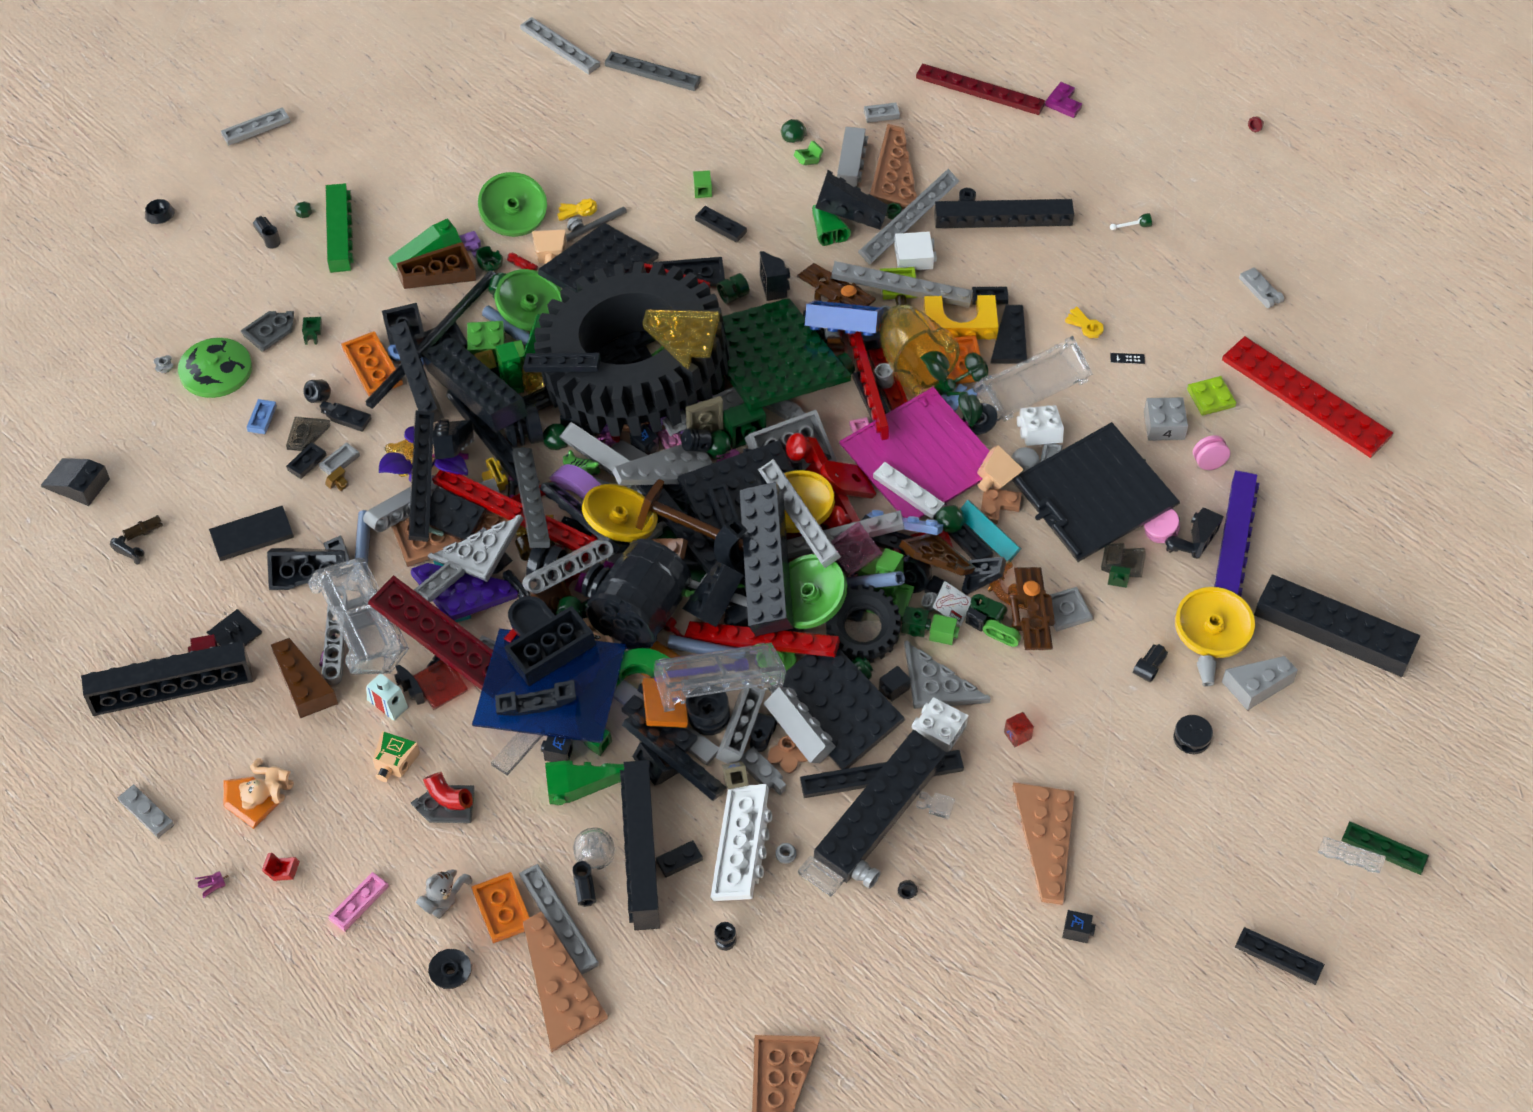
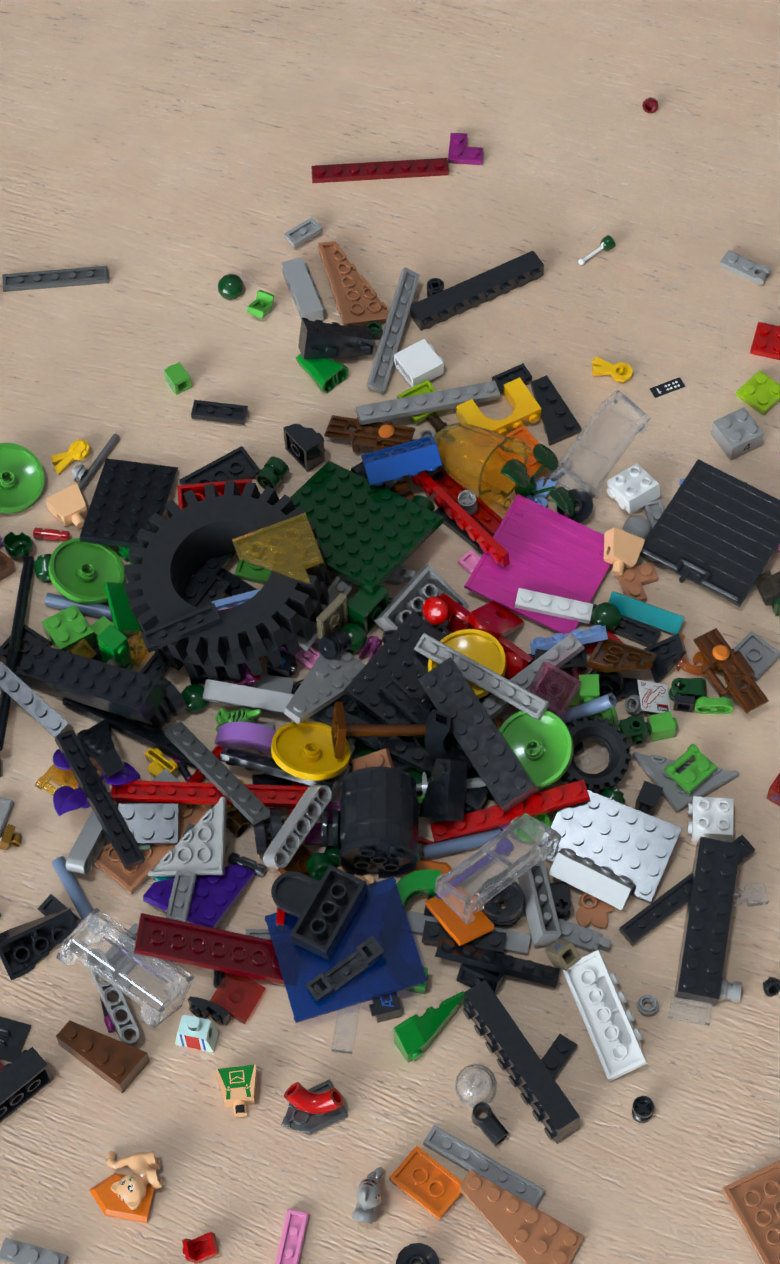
camera: 25 degrees left, 5 degrees up
(947, 681) = (695, 773): none -> bright green plate

